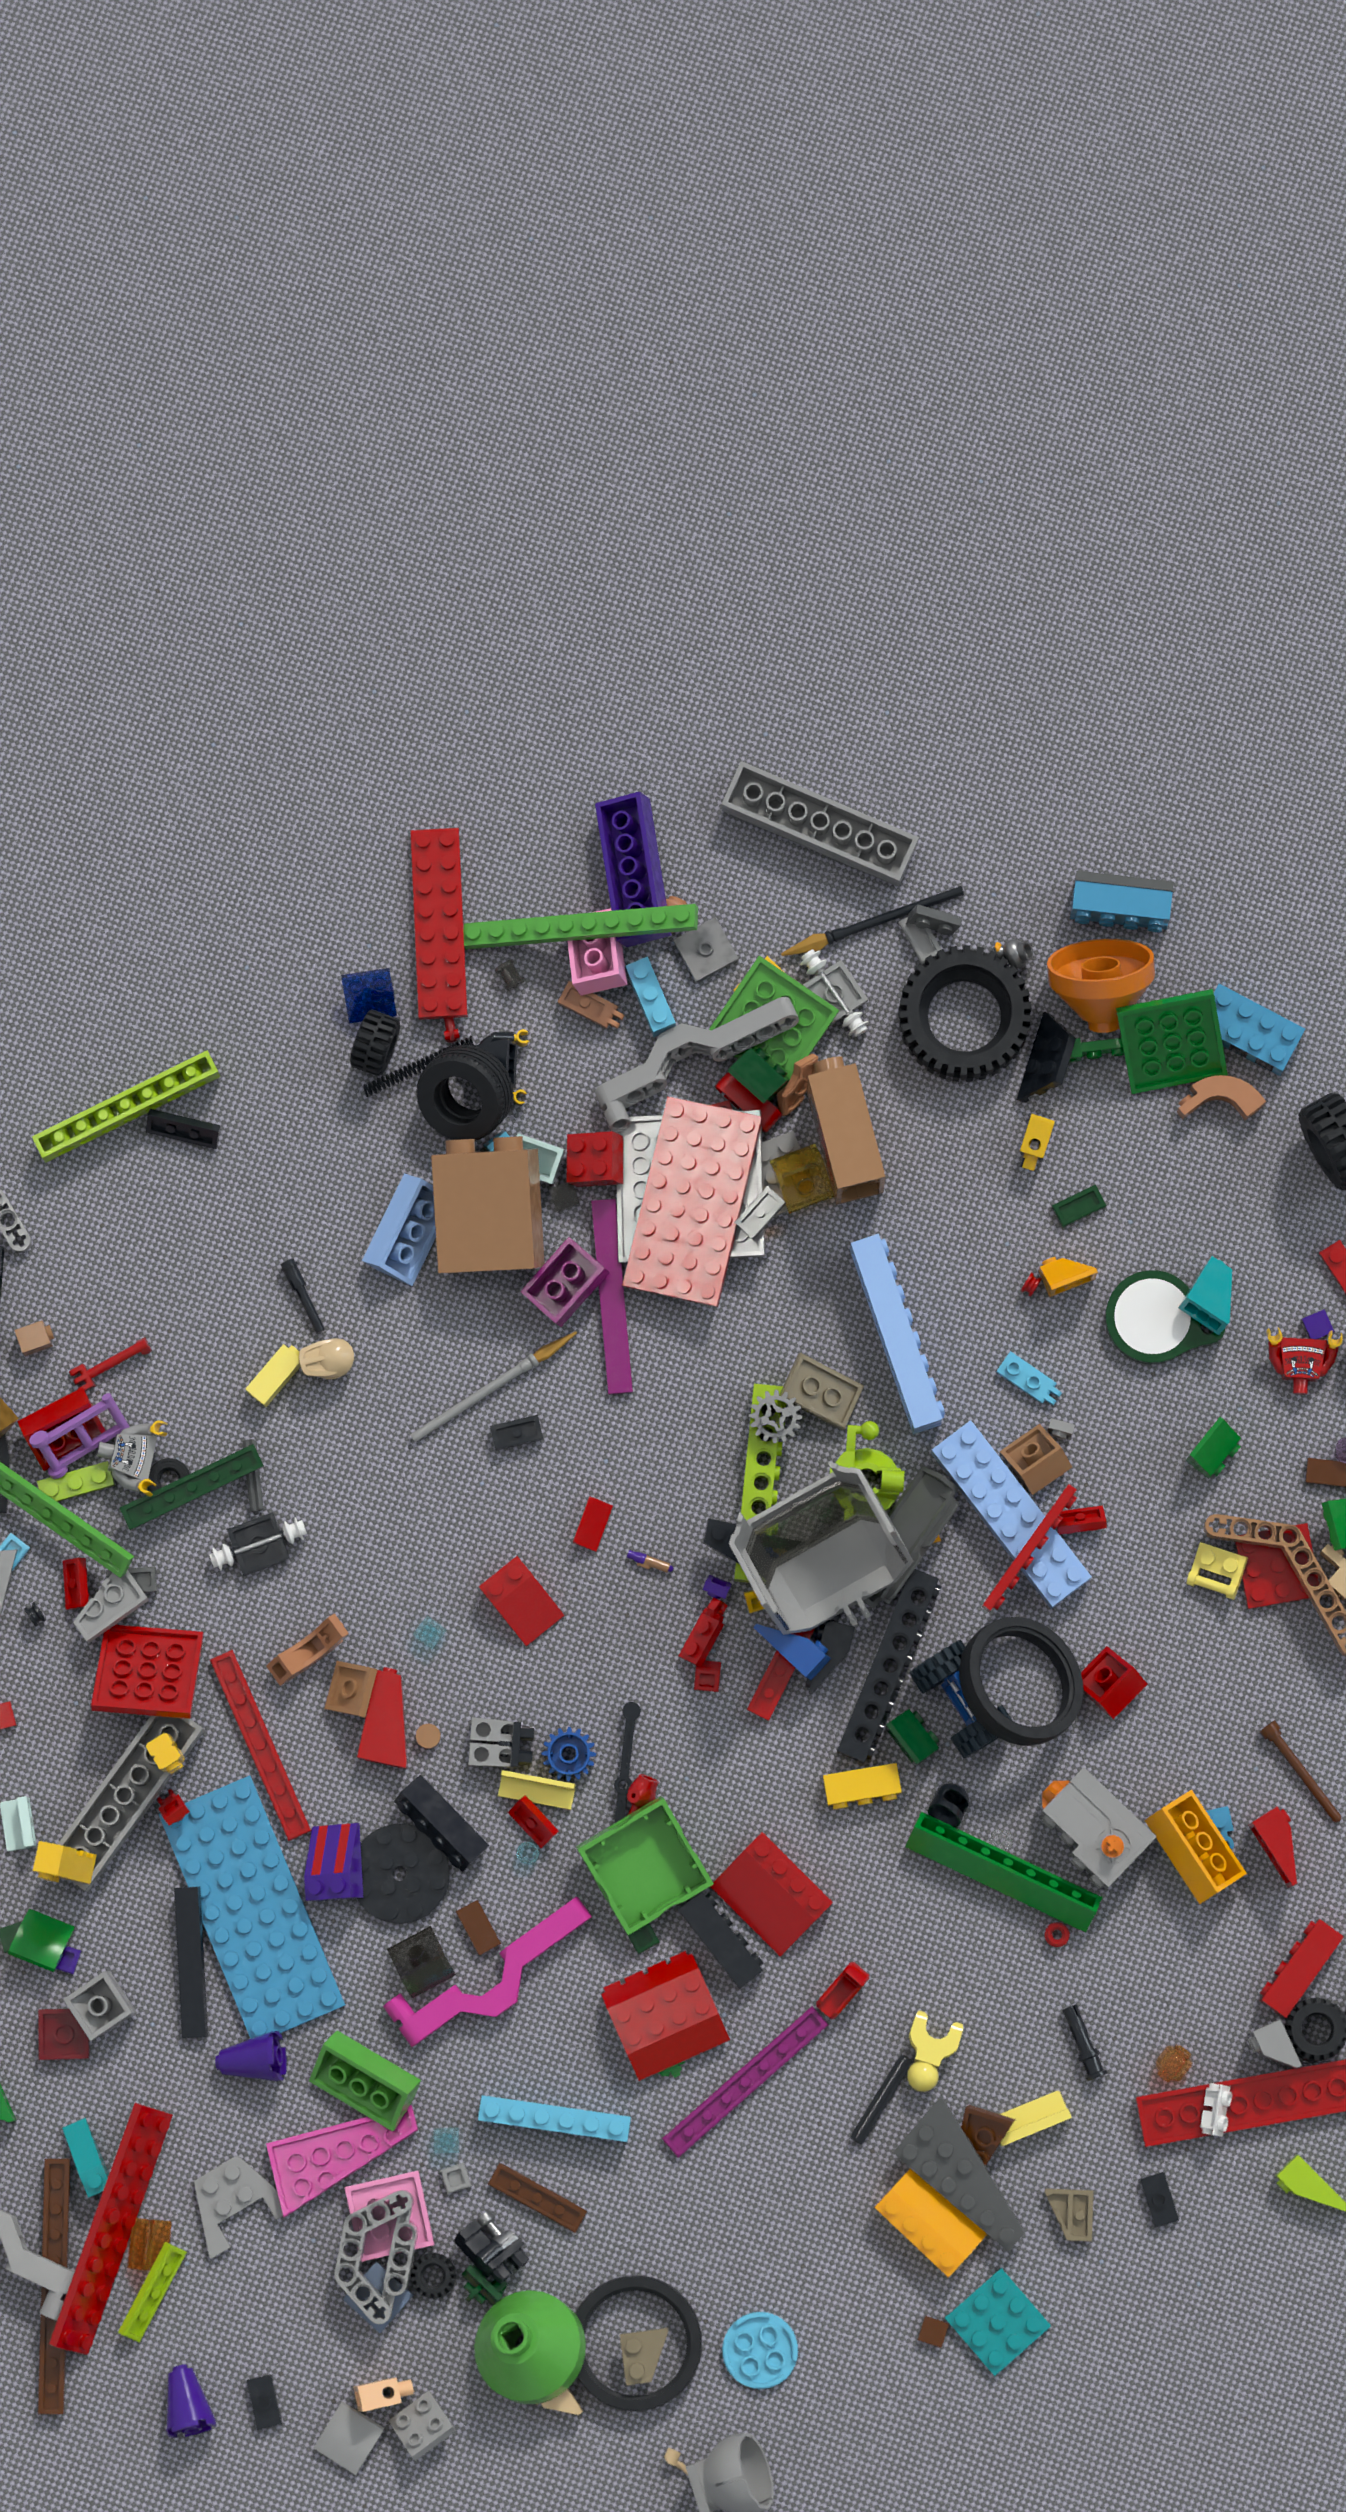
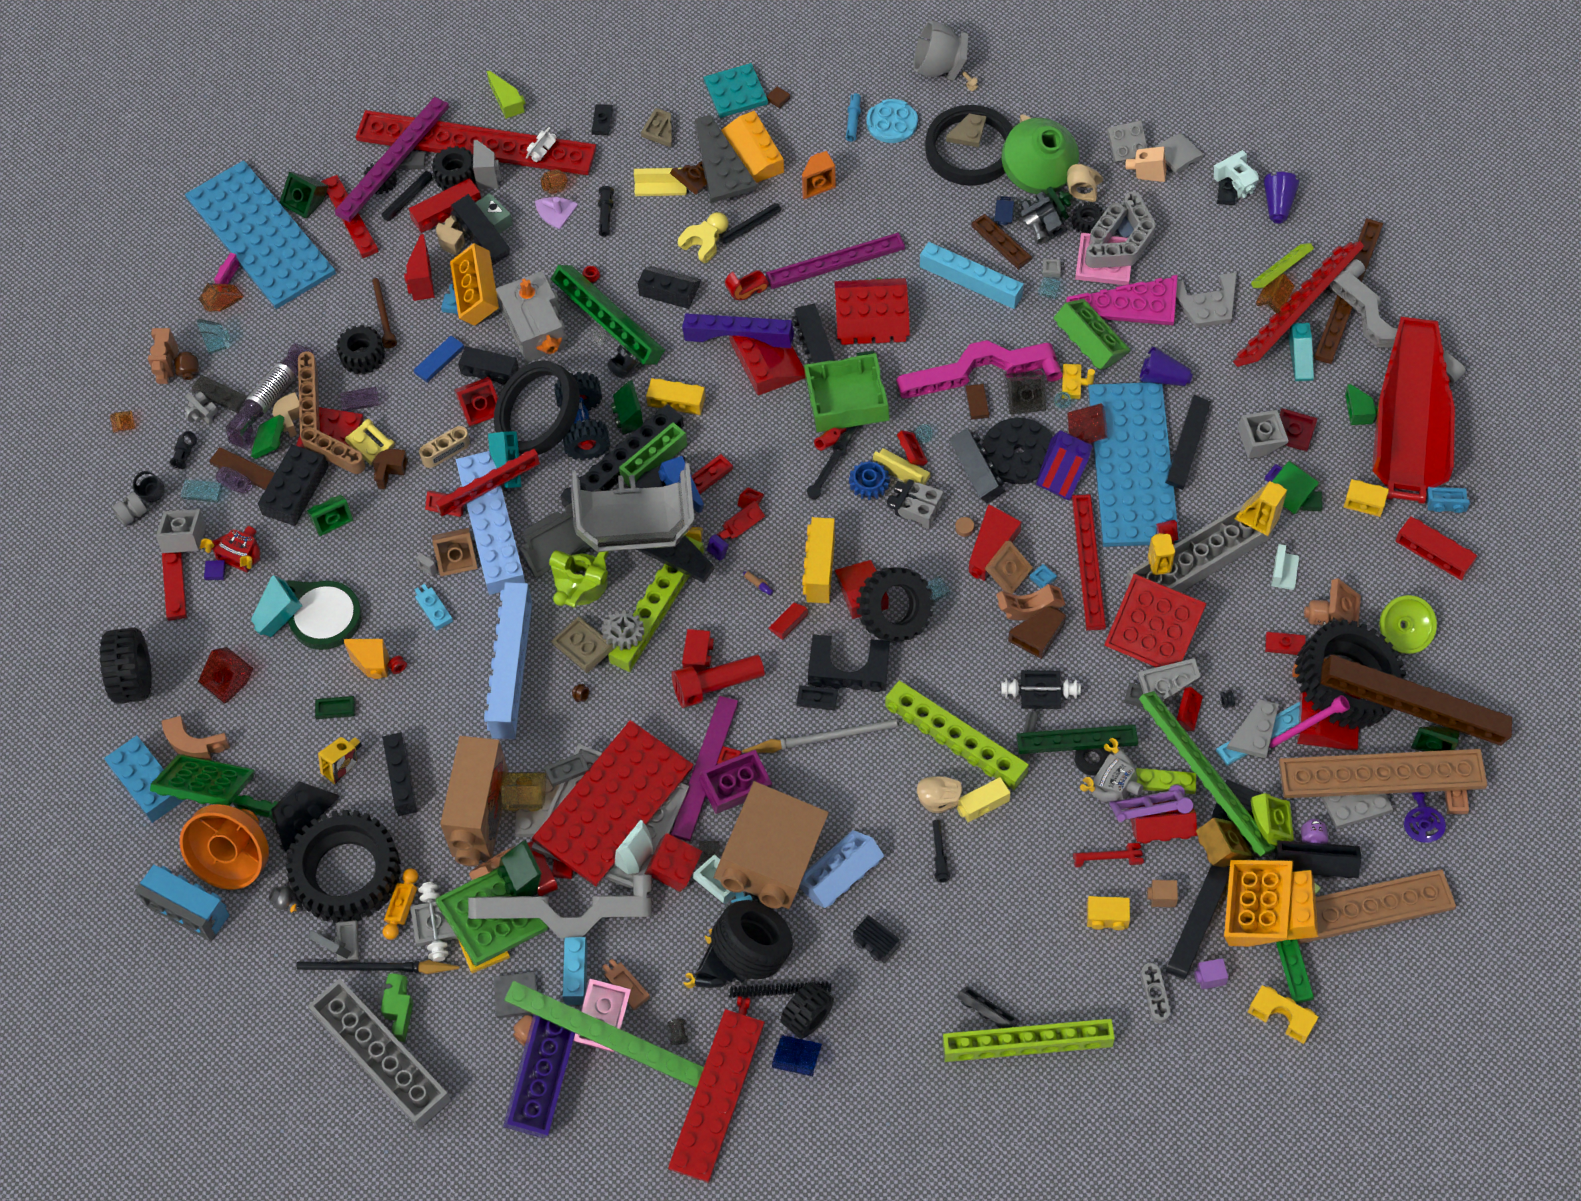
camera: 160 degrees left, 20 degrees down
(88, 1291) = (1108, 912): none -> yellow brick
(235, 2408) = (1243, 182): none -> light aqua tile
(285, 1619) = (1038, 632): none -> reddish brown slope
(308, 1702) = (1043, 576): none -> dark azure tile
(325, 1938) = (1088, 423): none -> clear red plate
(334, 1161) = (876, 939): none -> black brick
(364, 1972) = (1066, 395): none -> clear light blue bush
(367, 2006) = (1072, 380): none -> yellow plate
(417, 1474) = (952, 725): none -> lime brick
(447, 1556) = (918, 610): none -> black tyre
(459, 2323) = (1083, 176): none -> tan helmet
(461, 1485) = (870, 677): none -> black arch
(550, 2249) = (1004, 209): none -> dark blue slope
(582, 1612) = (819, 560): none -> yellow brick
(589, 1319) = (727, 754): none -> red tile
(641, 1150) = (634, 849): none -> light aqua slope
(666, 1384) = (691, 685): none -> red piece
(682, 1437) = (697, 649): none -> red brick
(797, 1332) = (580, 693): none -> reddish brown plate
(814, 2332) = (854, 111): none -> dark azure pin
(818, 2203) = (818, 175): none -> orange slope
(819, 1903) = (771, 331): none -> dark purple arch
(830, 885) = (396, 1004): none -> bright green plate
(850, 1681) = (658, 450): none -> bright green brick
(881, 999) = (400, 903): none -> light orange plate
(945, 1956) = (668, 286): none -> black slope
(958, 1148) = (399, 774): none -> black brick
(1033, 1606) = (503, 448): none -> teal slope
(1114, 1610) = (448, 439): none -> tan beam
(1122, 1738) = (487, 364): none -> black brick
(1154, 2024) = (555, 210): none -> lavender shield
(1176, 1552) = (389, 462): none -> reddish brown brick
(1193, 1729) = (438, 359): none -> blue tile
(1227, 1194) = (225, 674): none -> clear red slope
(1230, 1937) = (479, 228): none -> black brick
(1231, 1977) = (495, 213): none -> sand green brick
(1263, 1629) = (359, 399): none -> clear purple plate
(1273, 1917) = (450, 237): none -> tan brick
(1280, 1471) = (293, 485): none -> black brick
(1312, 1682) = (360, 361): none -> black tyre

